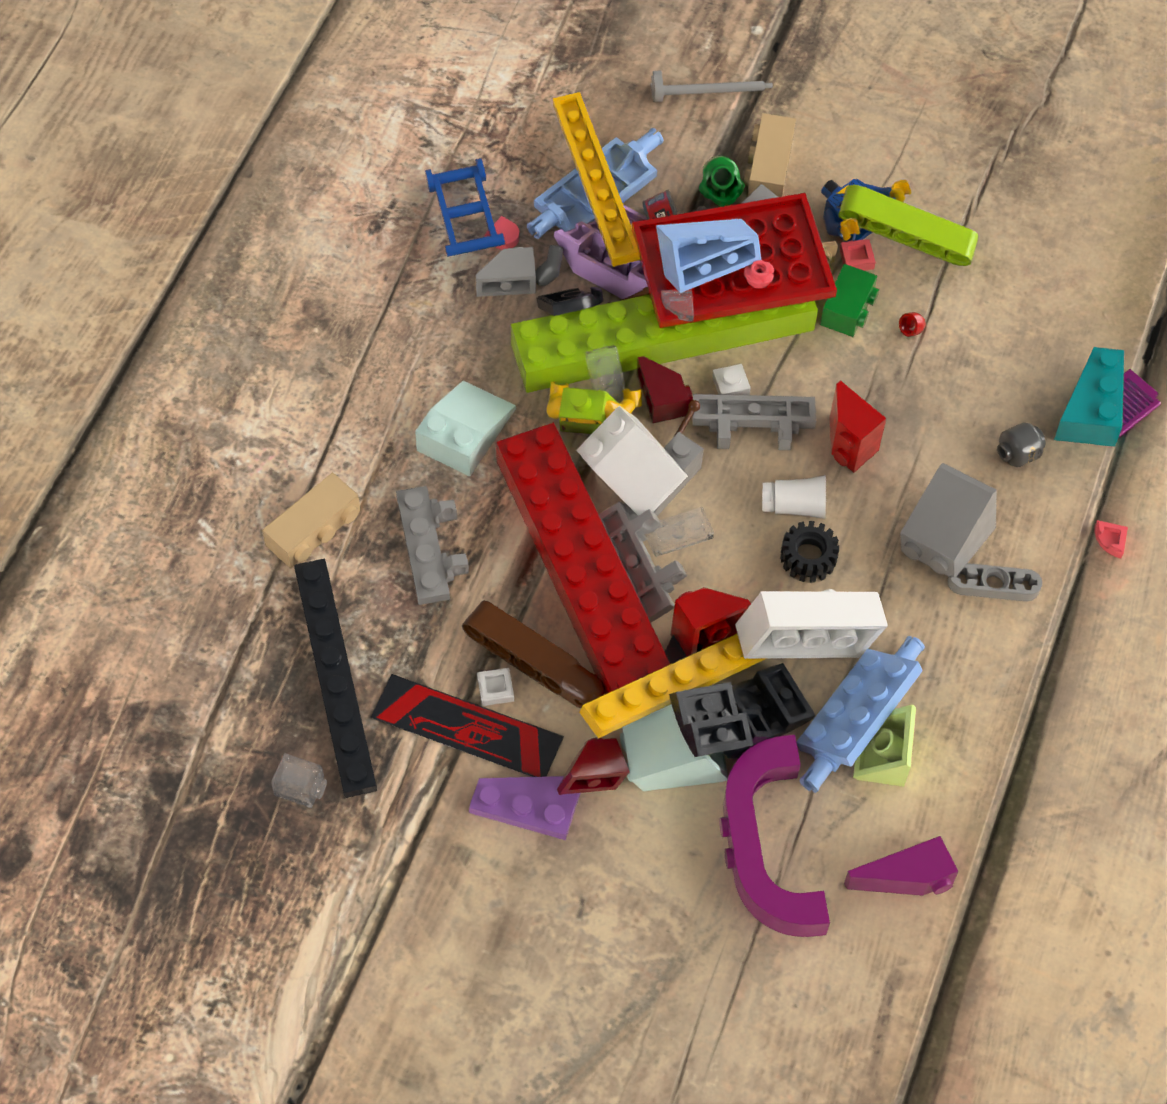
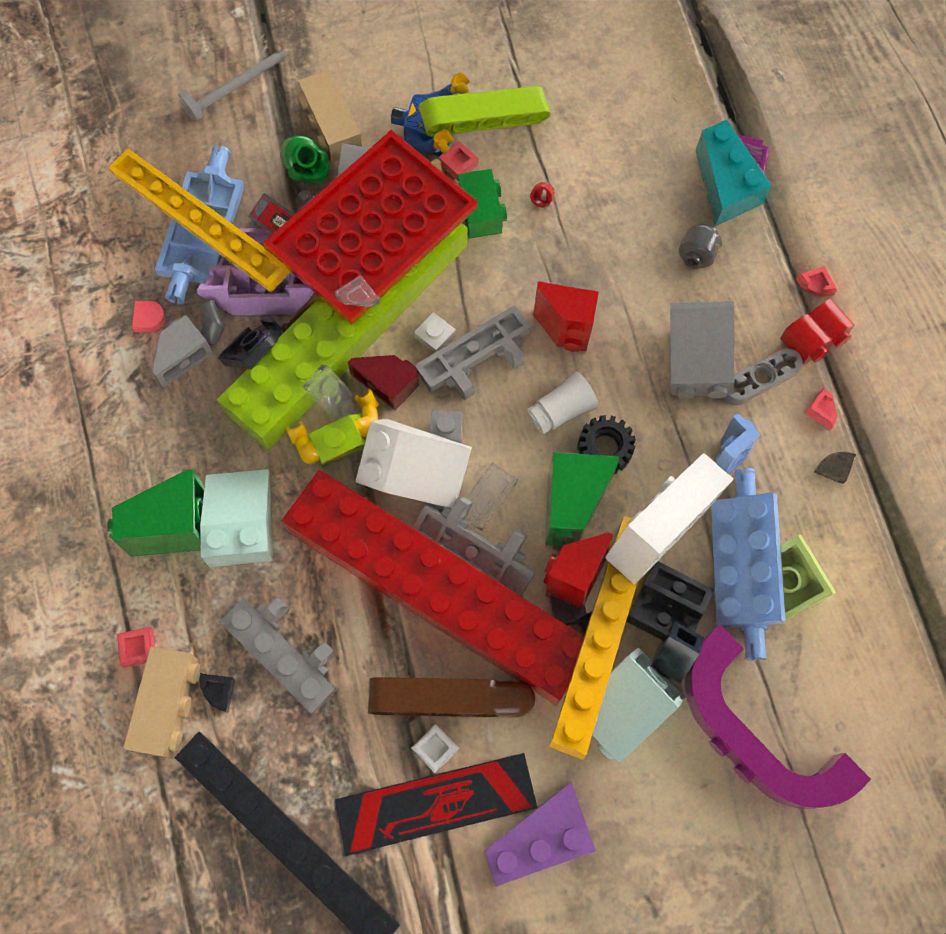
camera: 35 degrees left, 10 degrees up
(318, 469) = (135, 646): none -> coral tile
(359, 540) = (217, 690): none -> black tile
(405, 385) = (160, 518): none -> green slope
(478, 173) = (87, 273): blue piece -> none
(595, 768) = (577, 777): dark red slope -> none
(693, 406) = (424, 376): reddish brown hinge -> none
(705, 250) = (351, 232): light blue wedge -> none
(710, 719) = (657, 669): black slope -> none
(753, 562) = (574, 494): none -> green slope
(756, 279) = (405, 232): coral plate -> none
(910, 871) = (891, 674): magenta slope -> none
(915, 614) = (737, 443): none -> light blue bracket
(1004, 690) = (836, 466): none -> clear smoke tile
(1030, 640) = (823, 409): none -> coral tile
(1074, 574) = (818, 332): none -> red brick

